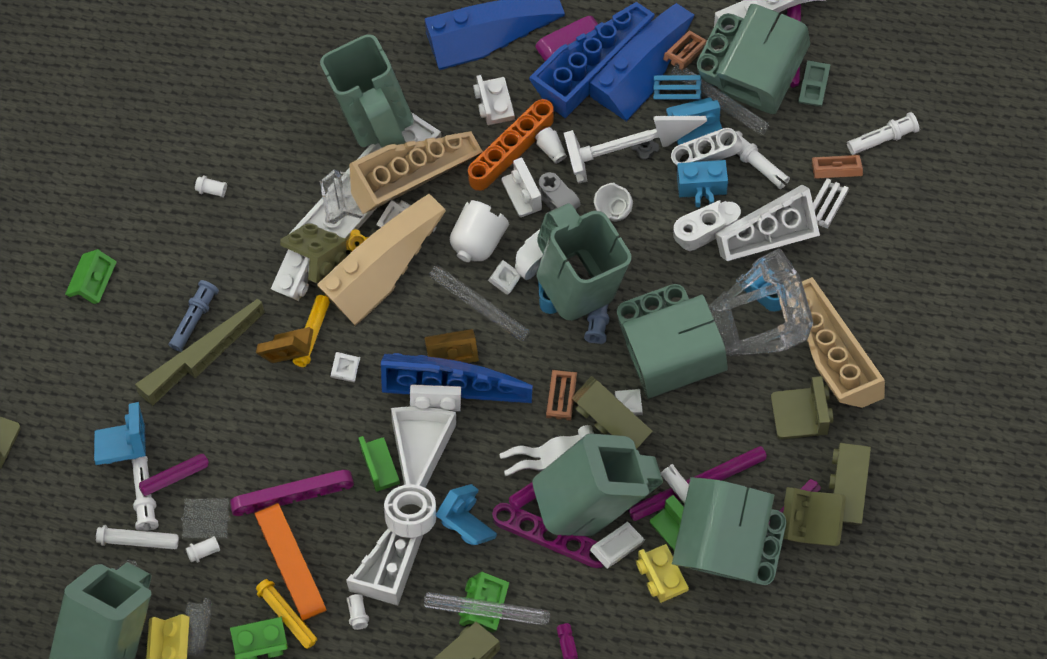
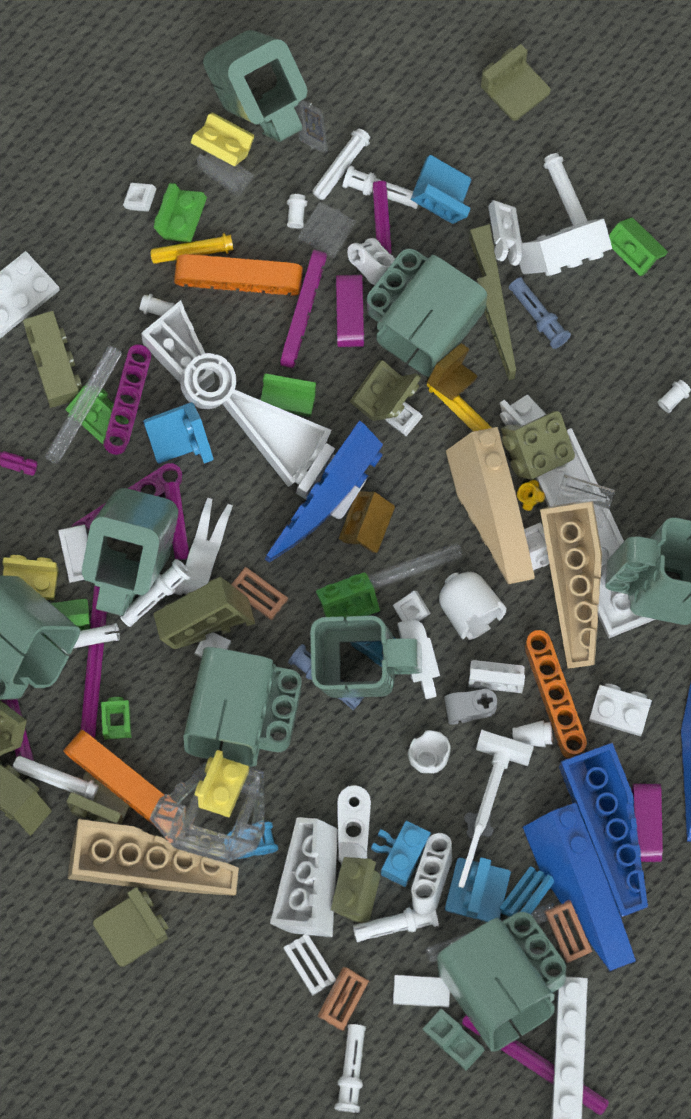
camera: 115 degrees right, 10 degrees up
(67, 352) = (554, 165): none -> white axle
(126, 319) = (565, 248): none -> white wedge
(135, 370) = (505, 232): none -> white hinge
(218, 457) = (373, 259): none -> white piece
(245, 384) = (426, 311): none -> sand green piece
(272, 455) = (349, 311): none -> magenta beam
(333, 382) = (384, 392): none -> olive bracket
(472, 577) = (125, 409): none -> magenta beam
(526, 324) = (349, 597): none -> bright green bracket
(733, 427) = (116, 706): none -> bright green window
(740, 320) = (221, 785): none -> light yellow bracket
(756, 185) = (356, 889): none -> olive bracket
(782, 401) = (113, 774): none -> orange beam
(794, 122) = (420, 991): none -> white tile
(813, 448) = (56, 778): none -> white axle
(888, 333) = (131, 928): none -> olive bracket

